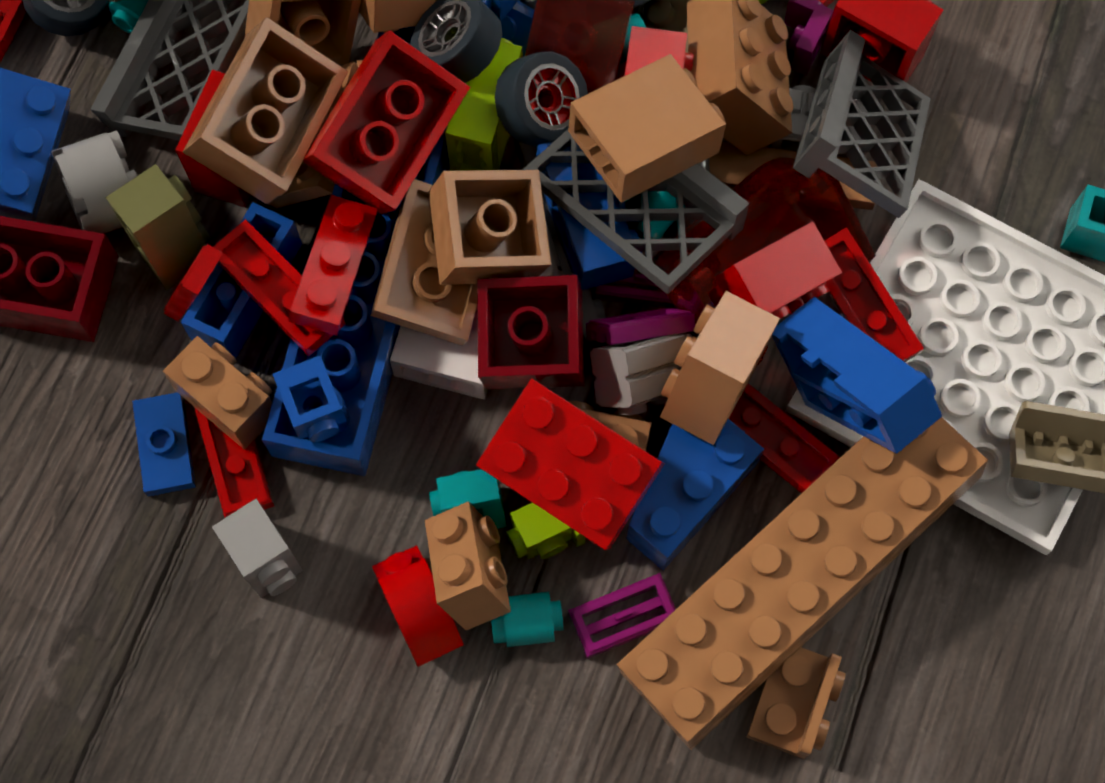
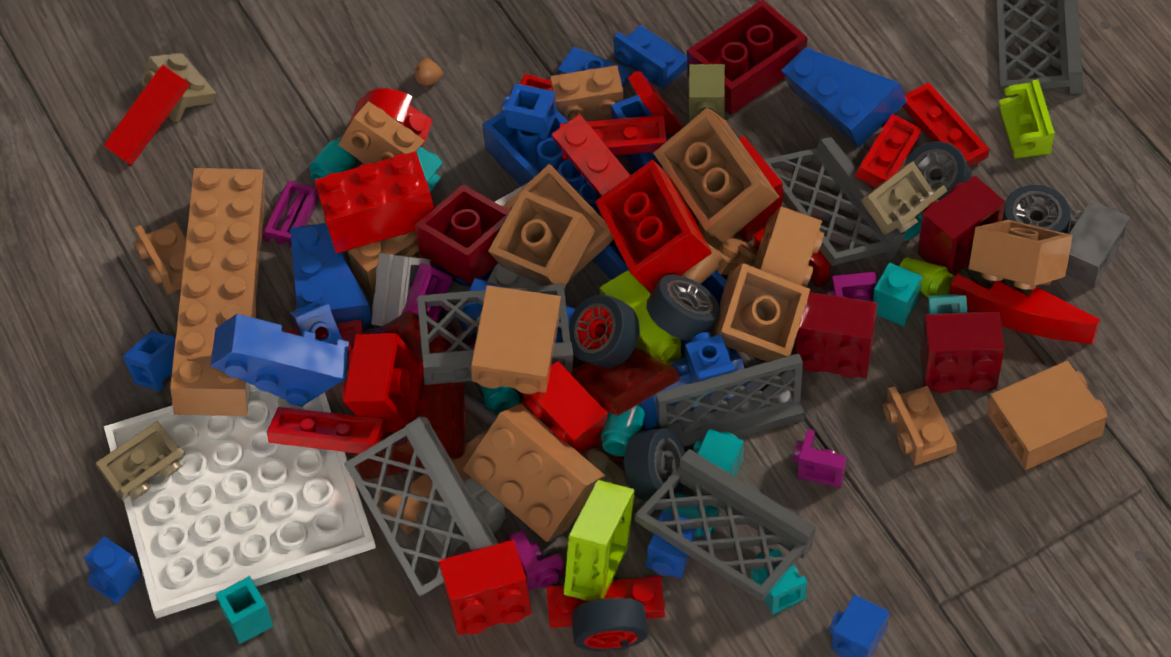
camera: 135 degrees right, 15 degrees down
(74, 45) = (888, 151): none -> red plate
(90, 174) = (775, 114): light grey brick -> none
(94, 400) = (650, 55): none -> blue bracket
(258, 550) = (482, 63): light grey brick -> none
(308, 631) = (427, 72): none -> medium nougat hinge
(716, 366) = (352, 295): medium nougat brick -> none
(769, 400) = (314, 316): none -> blue brick
(949, 580) = (151, 360): none -> blue brick

